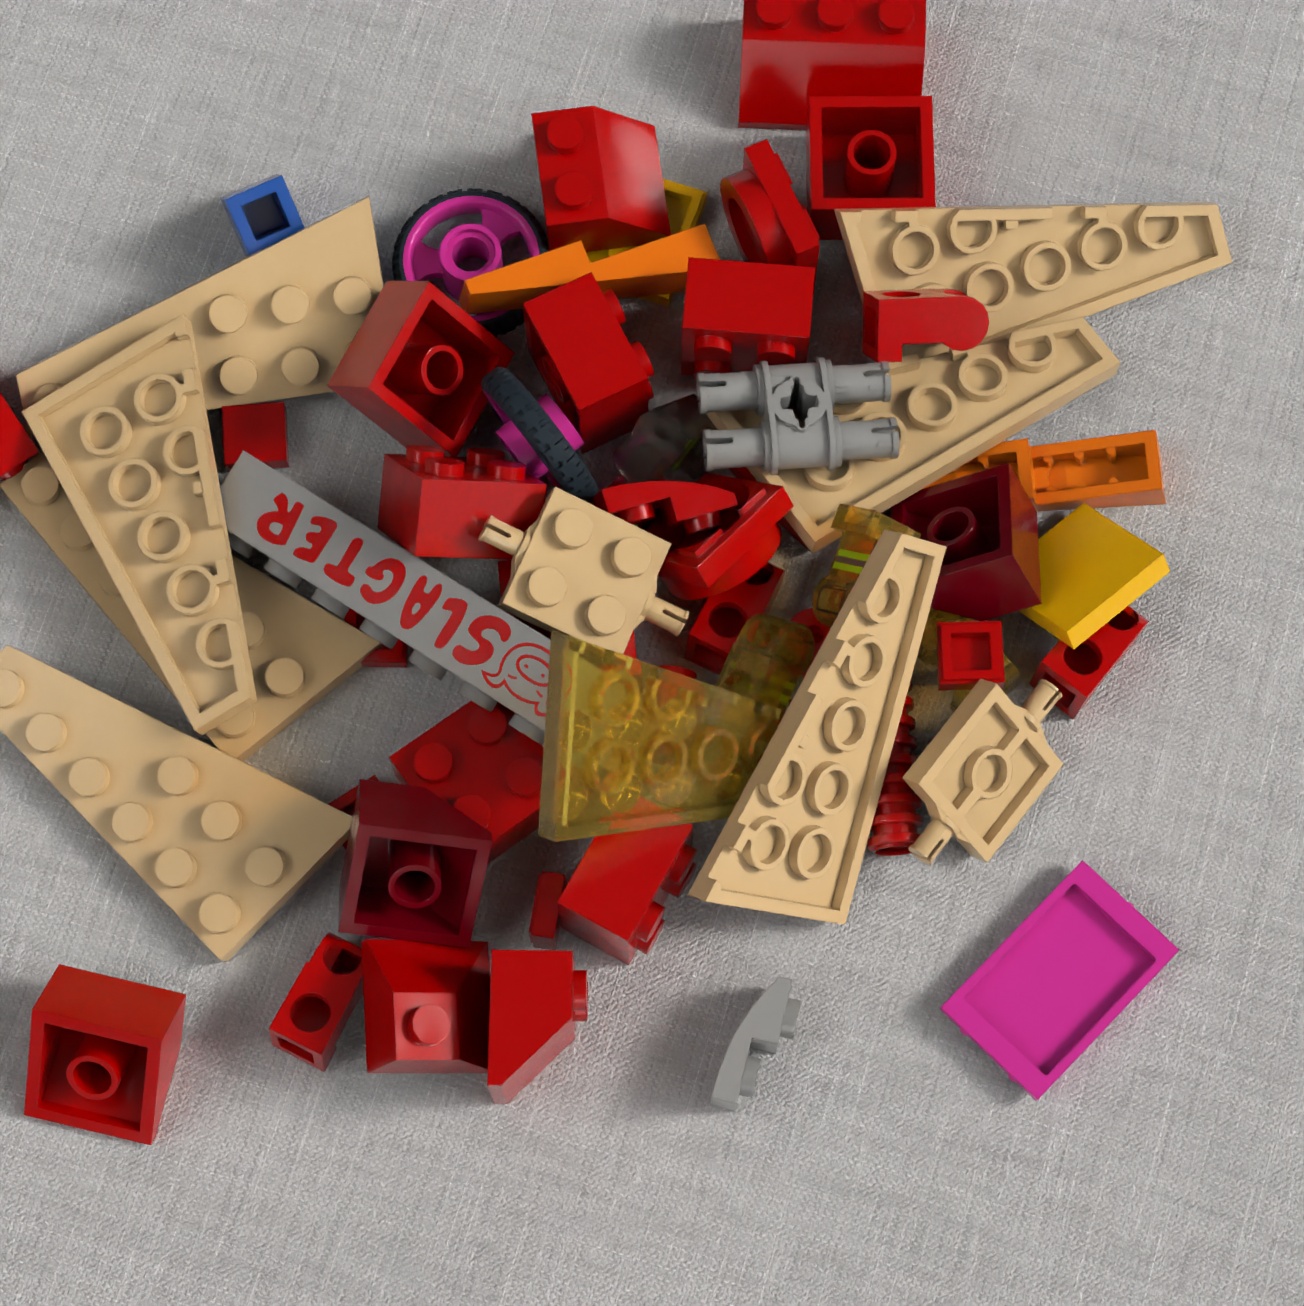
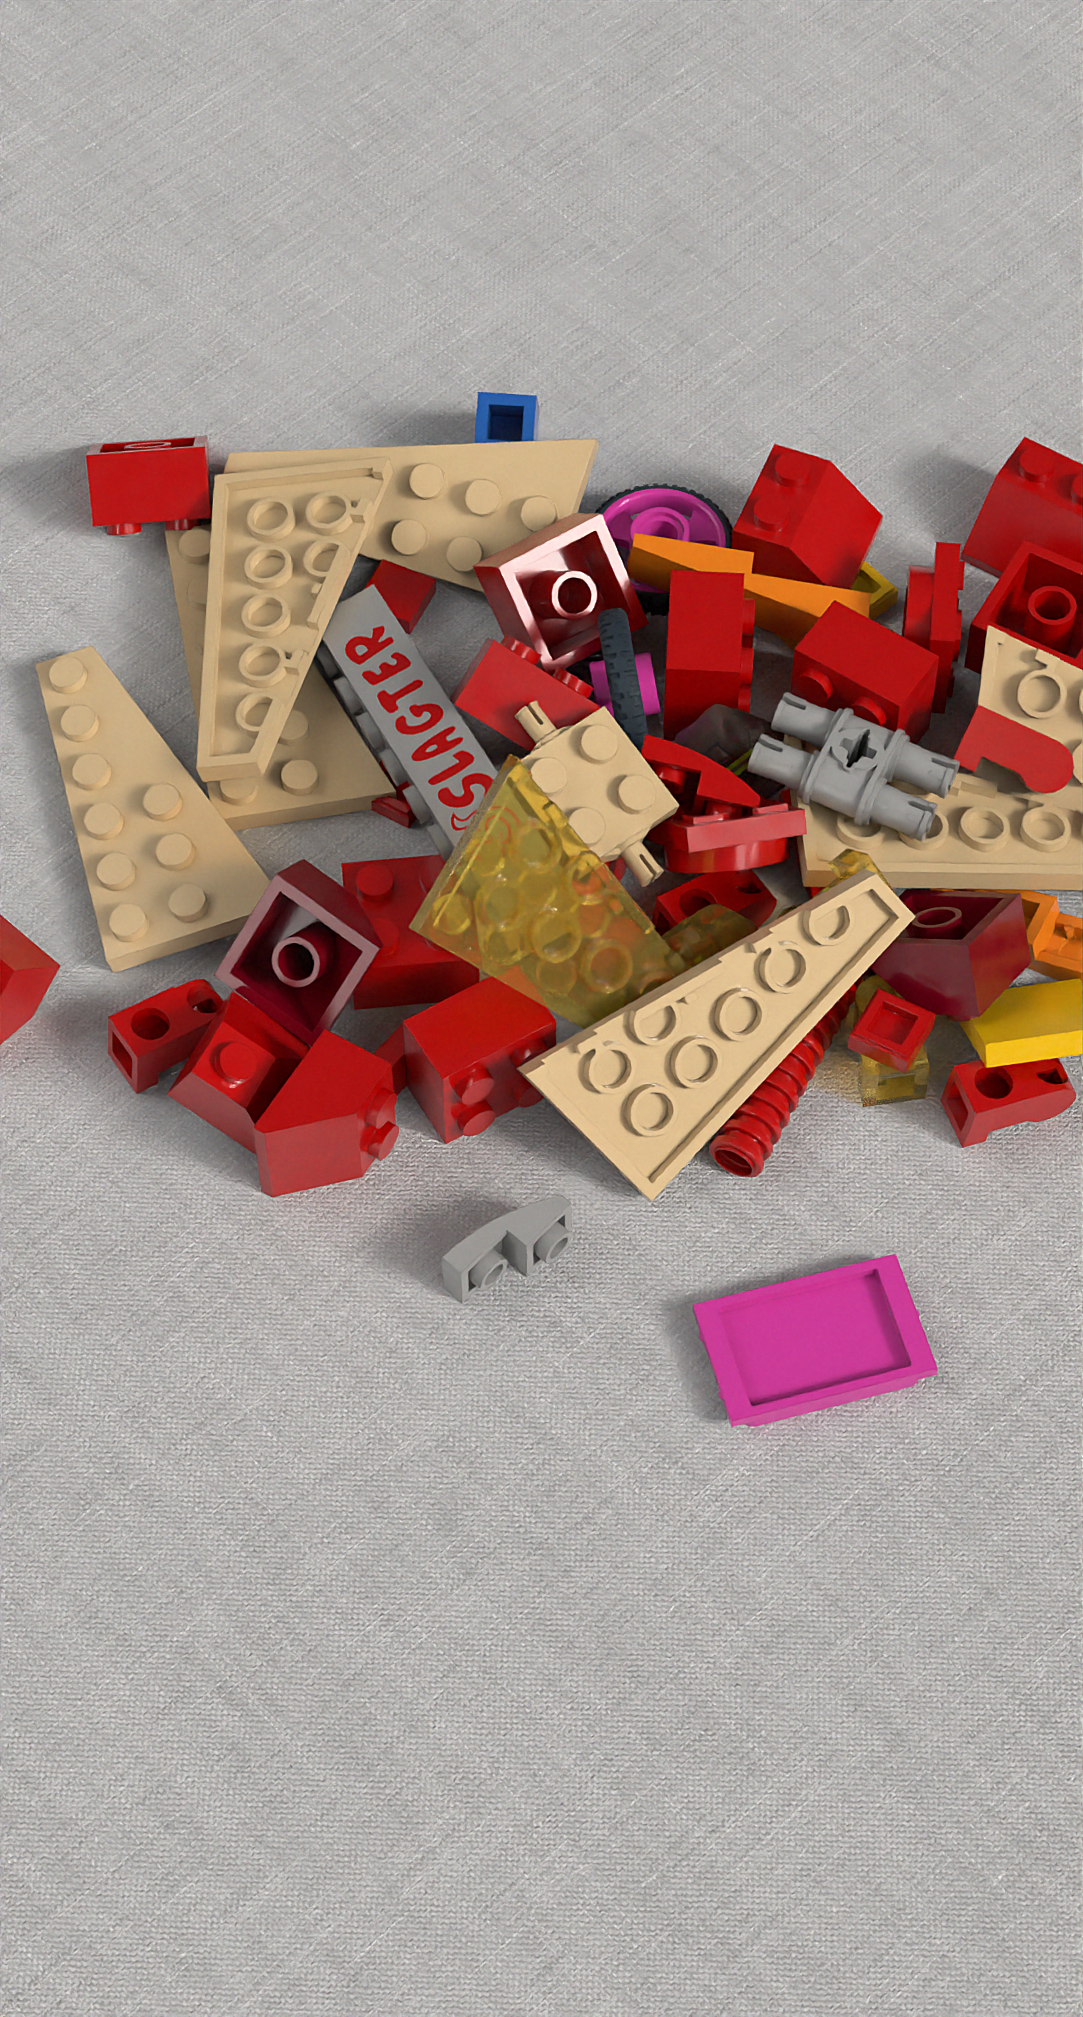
camera: 30 degrees right, 15 degrees down
(983, 770) = (848, 1130): tan plate -> none

